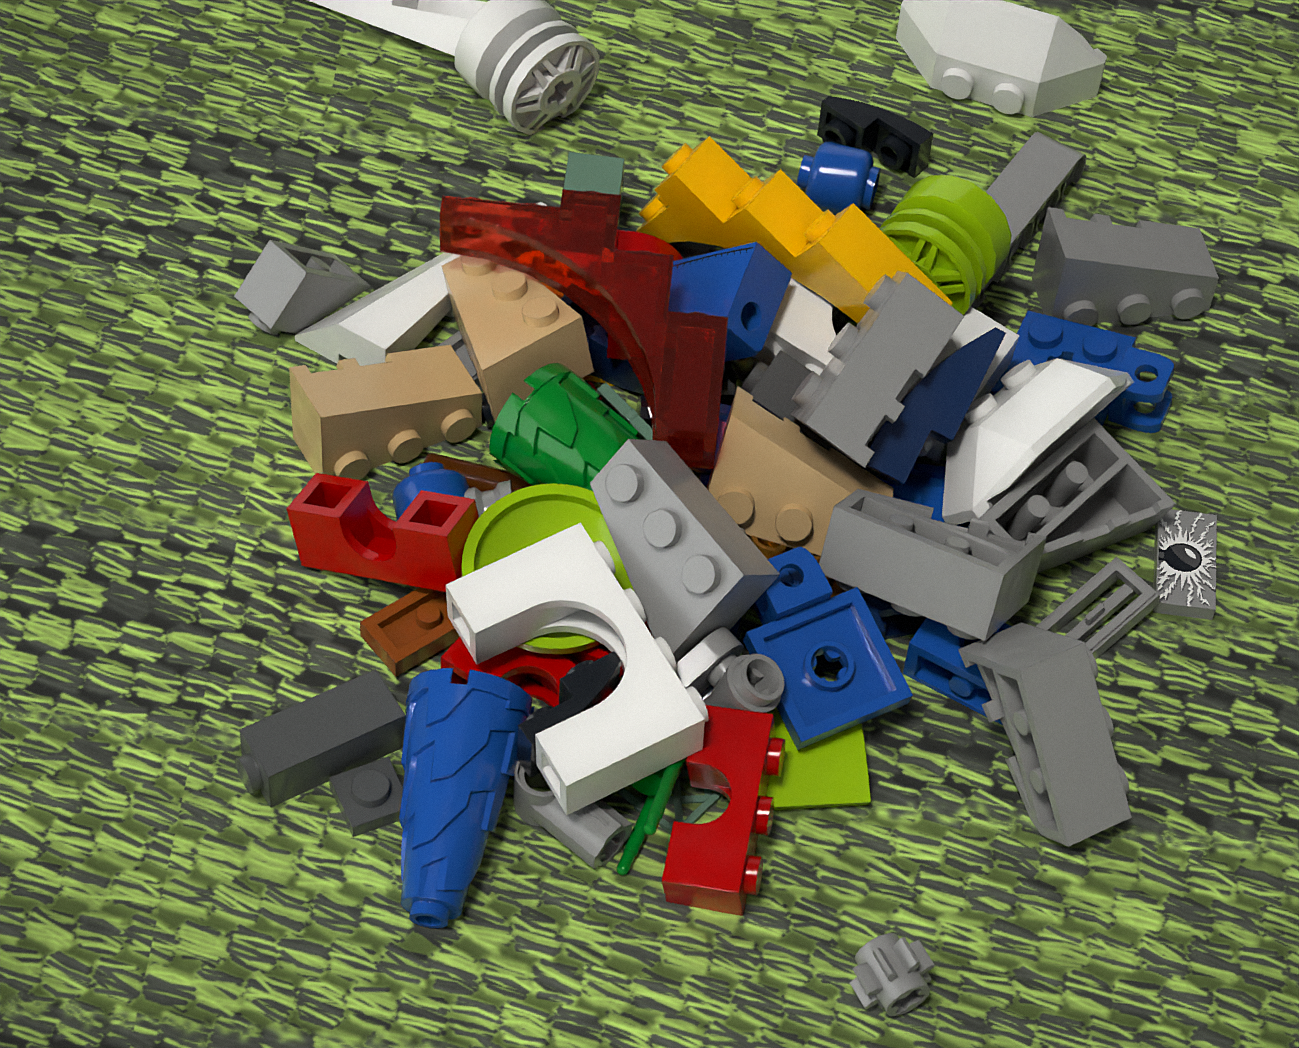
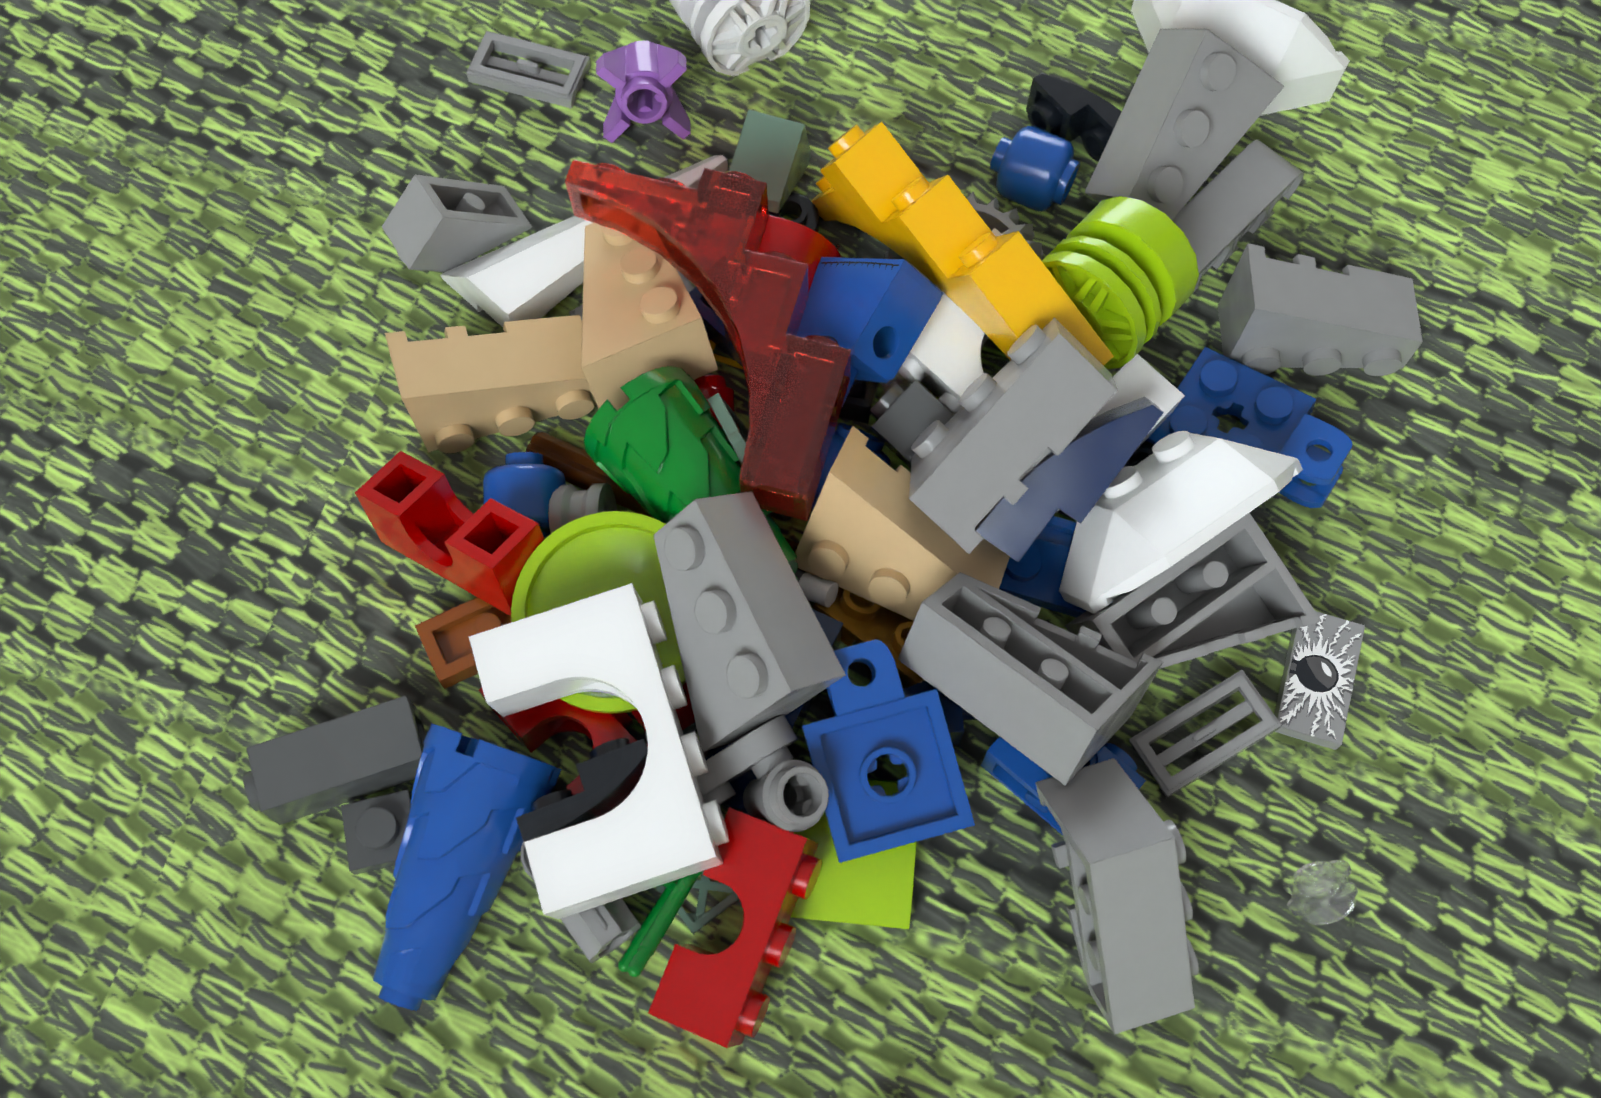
camera: 15 degrees right, 15 degrees up
(329, 155) = (525, 76): none -> light grey tile
(450, 145) = (643, 87): none -> medium lavender brick
(967, 112) = (1181, 119): none -> light grey wedge
(1221, 721) = (1321, 892): none -> clear plate

